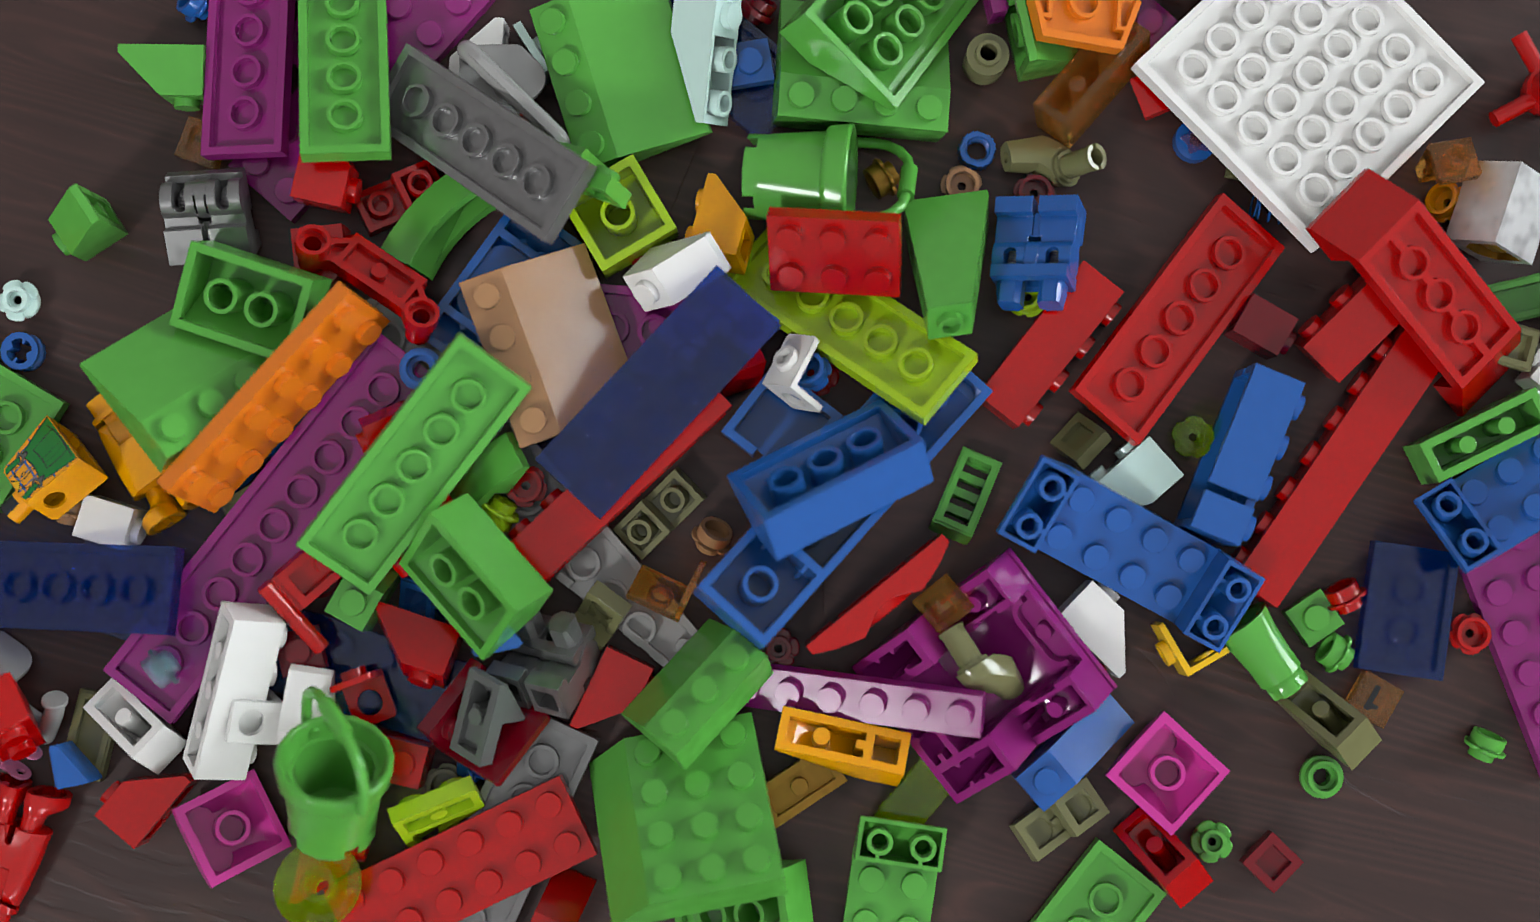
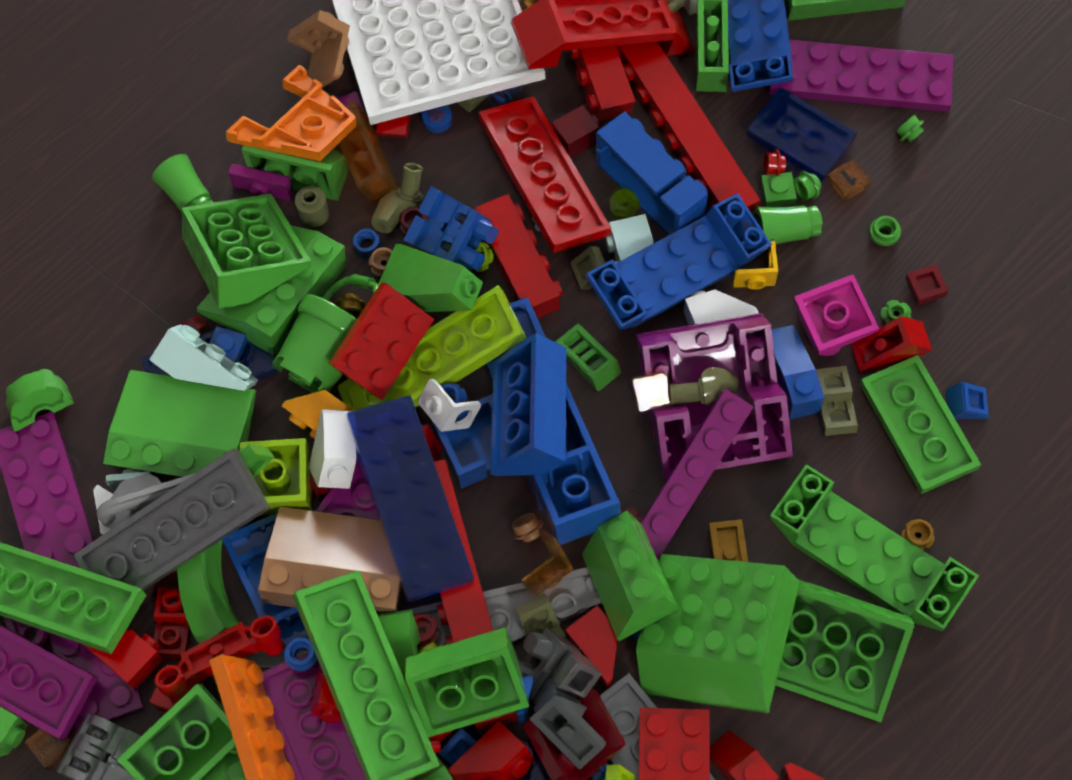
camera: 60 degrees left, 20 degrees down
(659, 513) = (491, 556): olive slope -> none
(844, 745) = (718, 502): light orange slope -> none
(881, 598) = (627, 431): red slope -> none
(914, 797) = (772, 479): clear neon green tile -> none
(1332, 722) = (852, 206): olive slope -> none
(1481, 633) = (838, 100): red plate -> none

